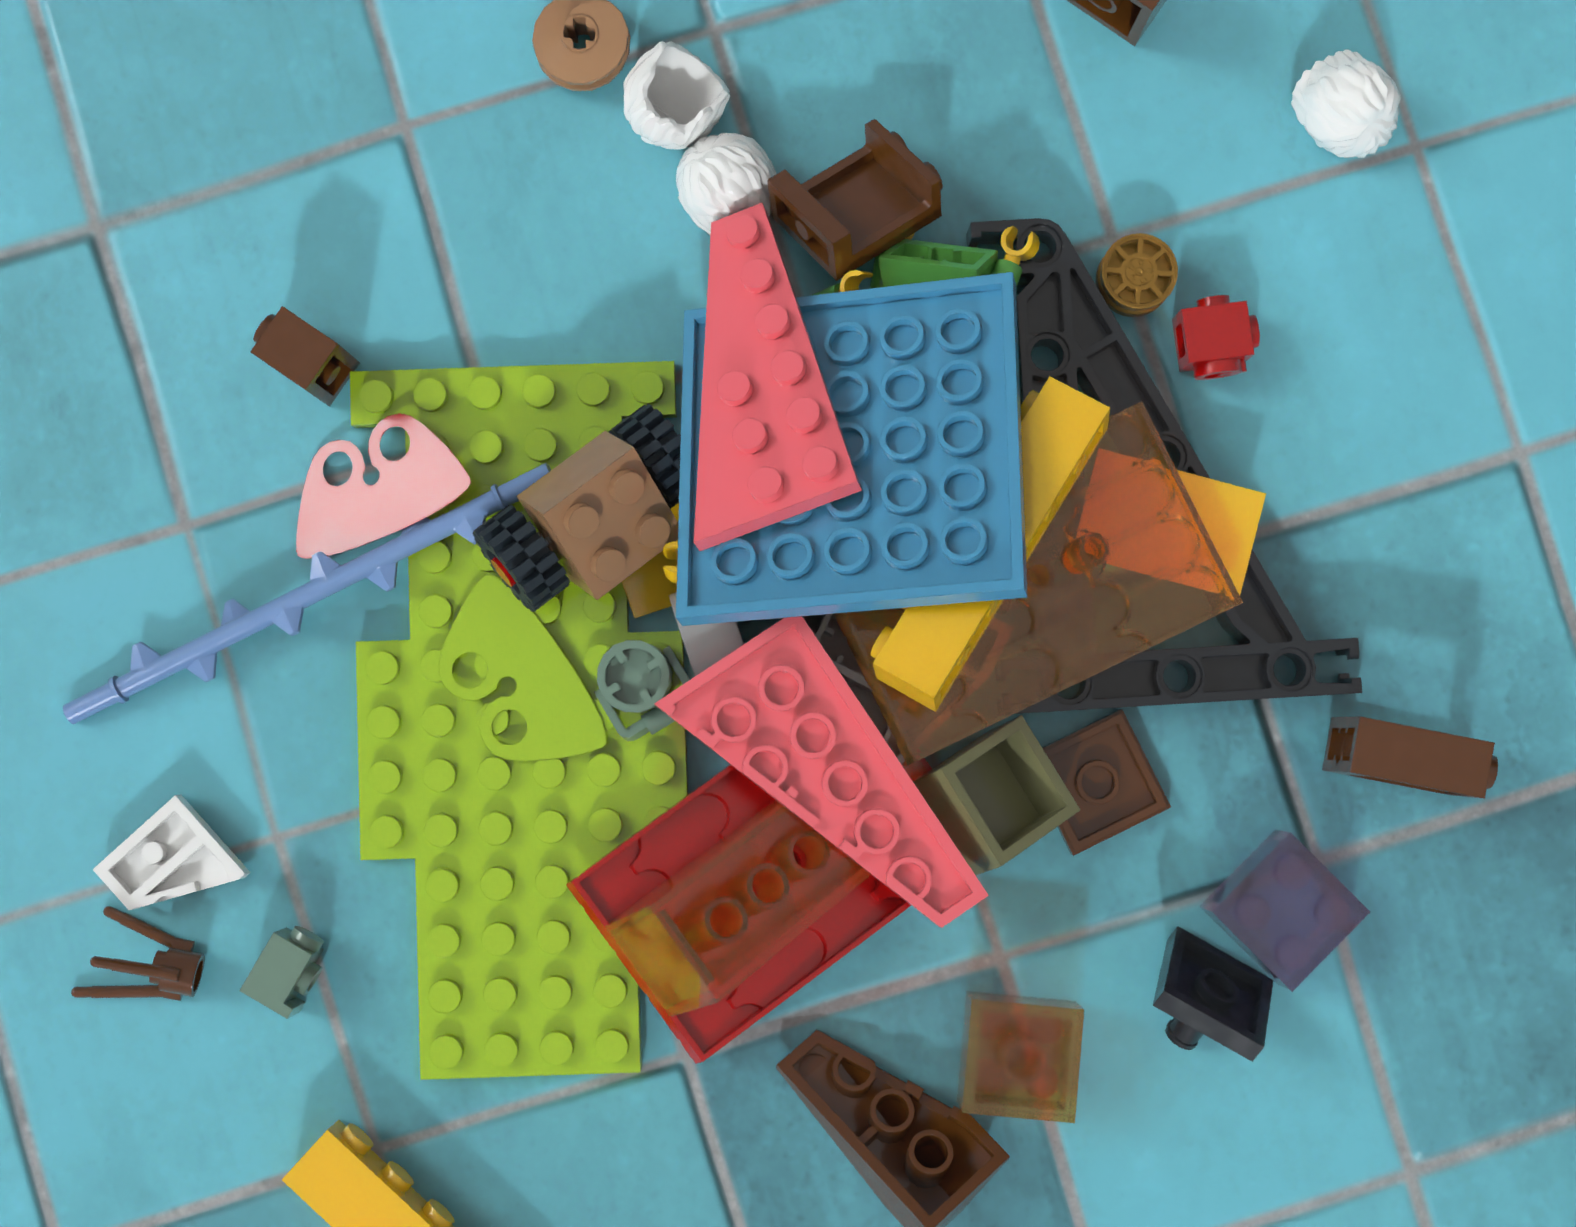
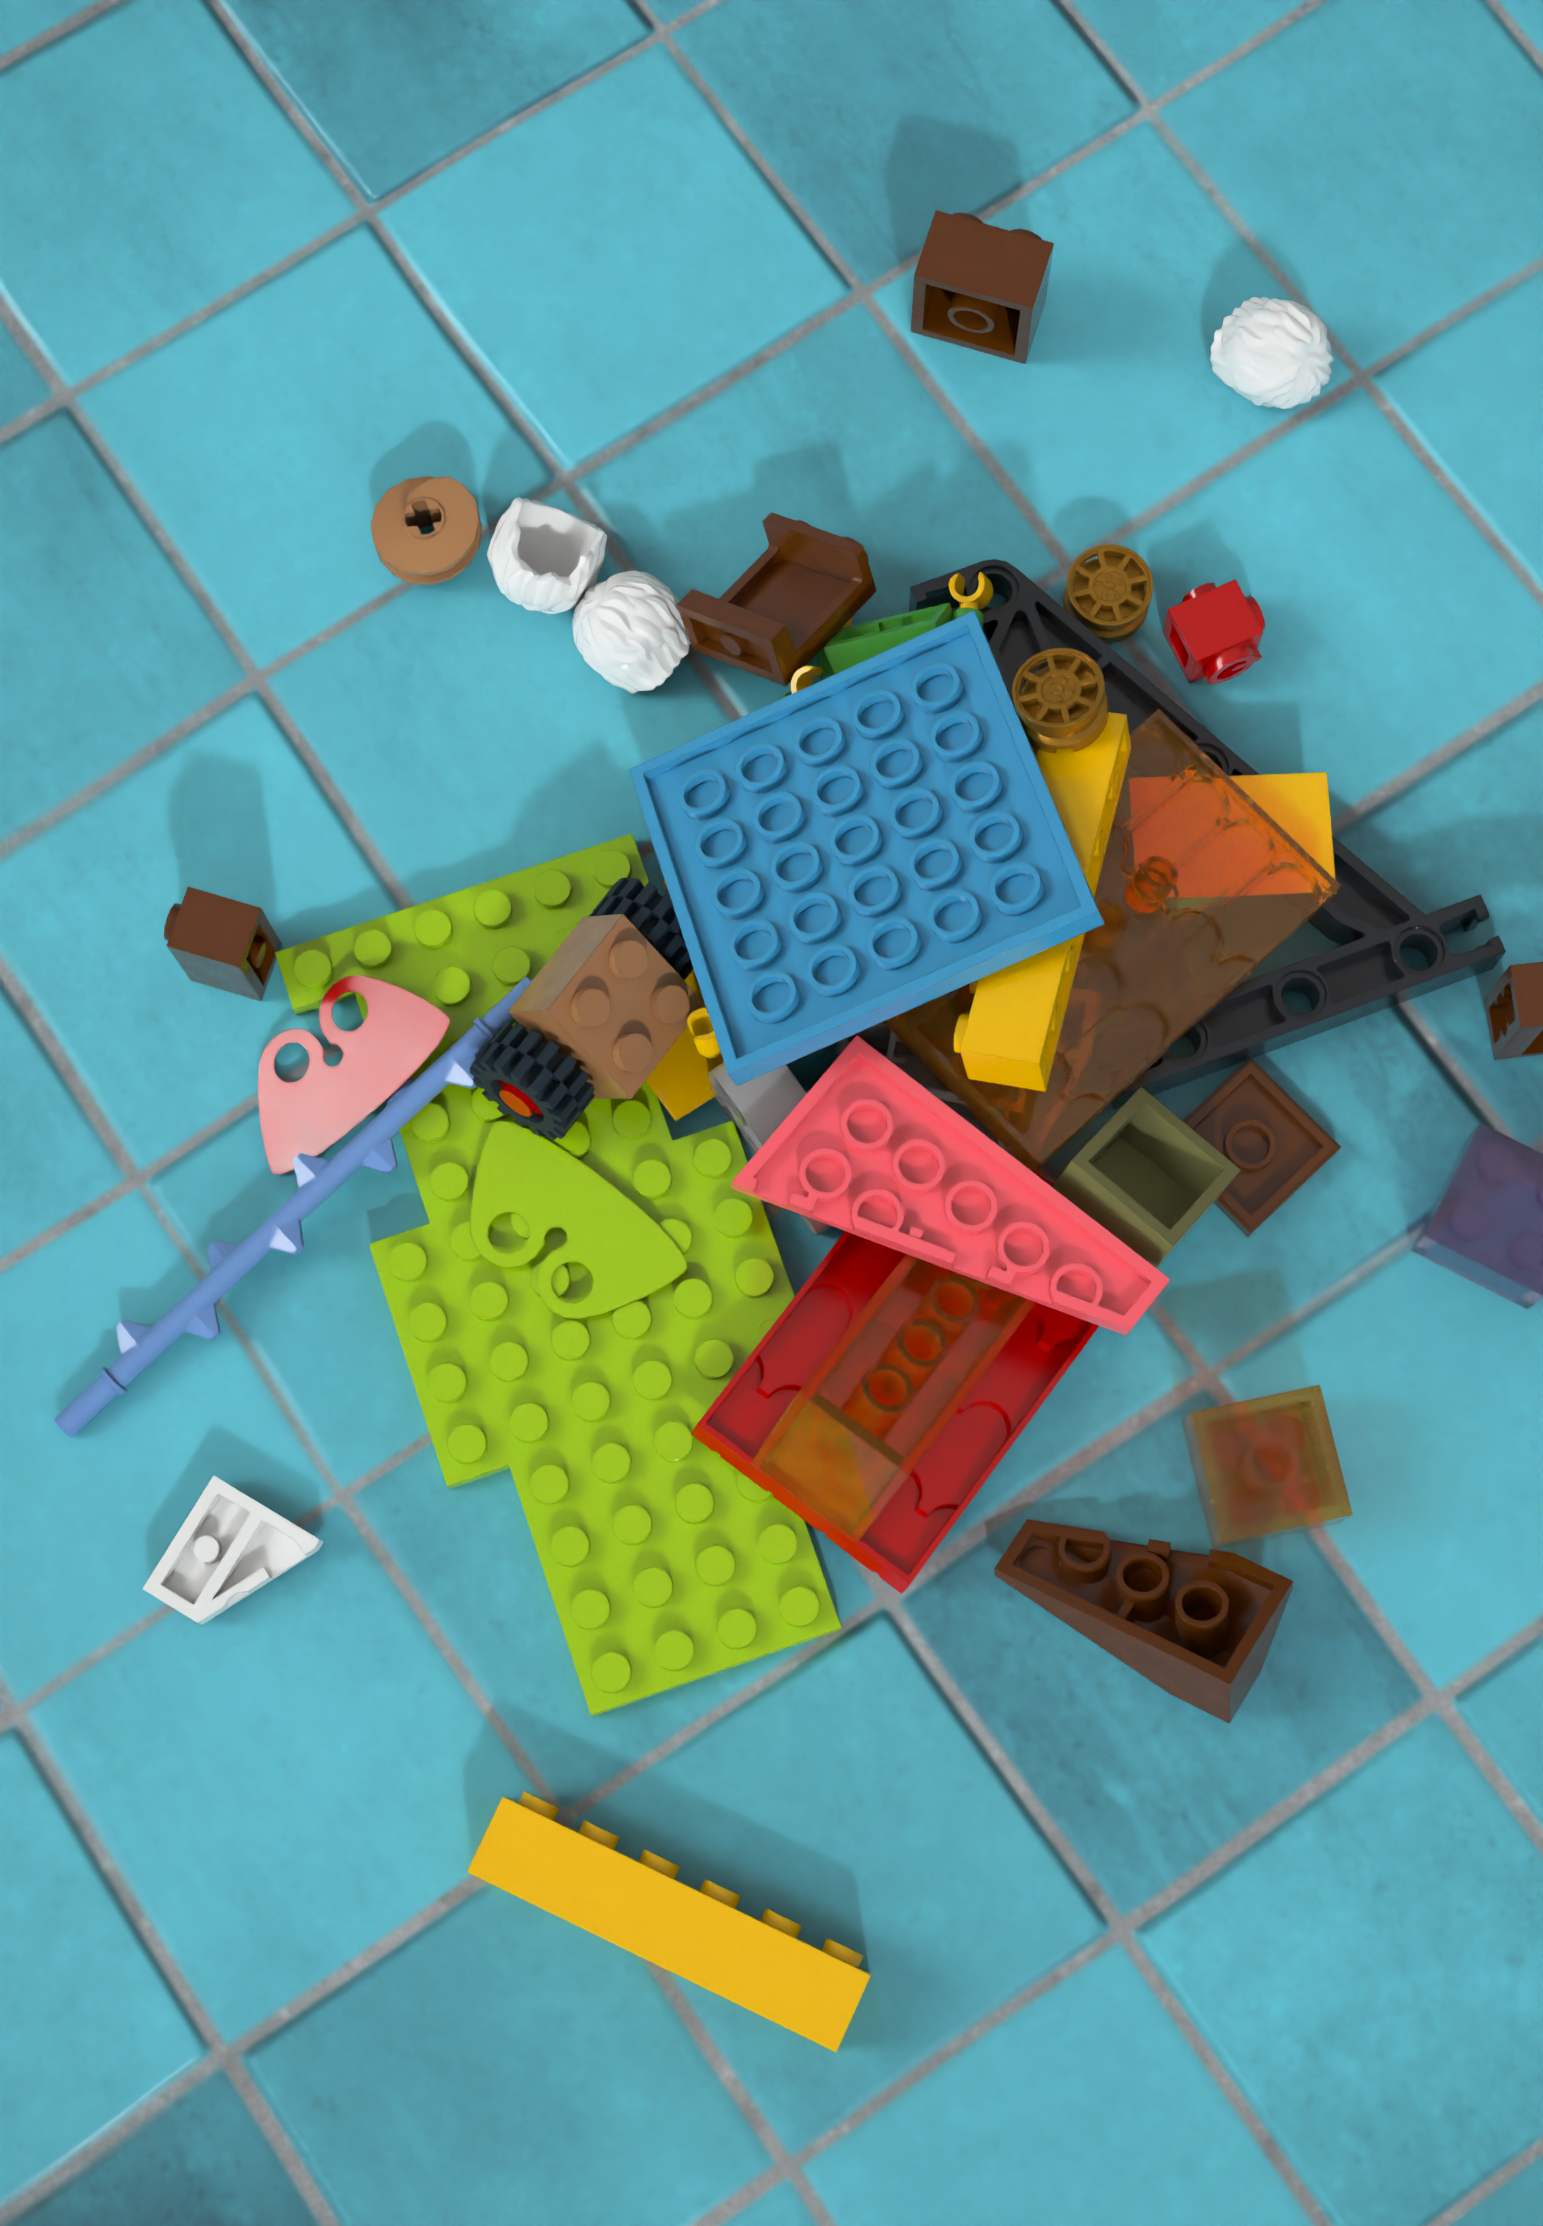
camera: 15 degrees left, 10 degrees down
(175, 971) = (269, 1678): reddish brown plant -> none
(284, 970) = (398, 1634): sand green brick -> none
(632, 680) = (695, 1186): sand green piece -> none
(765, 409) = (753, 831): coral wing -> none
(1059, 380) = (1061, 702): none -> pearl gold wheel
(1212, 996) = (1456, 1334): black tile -> none

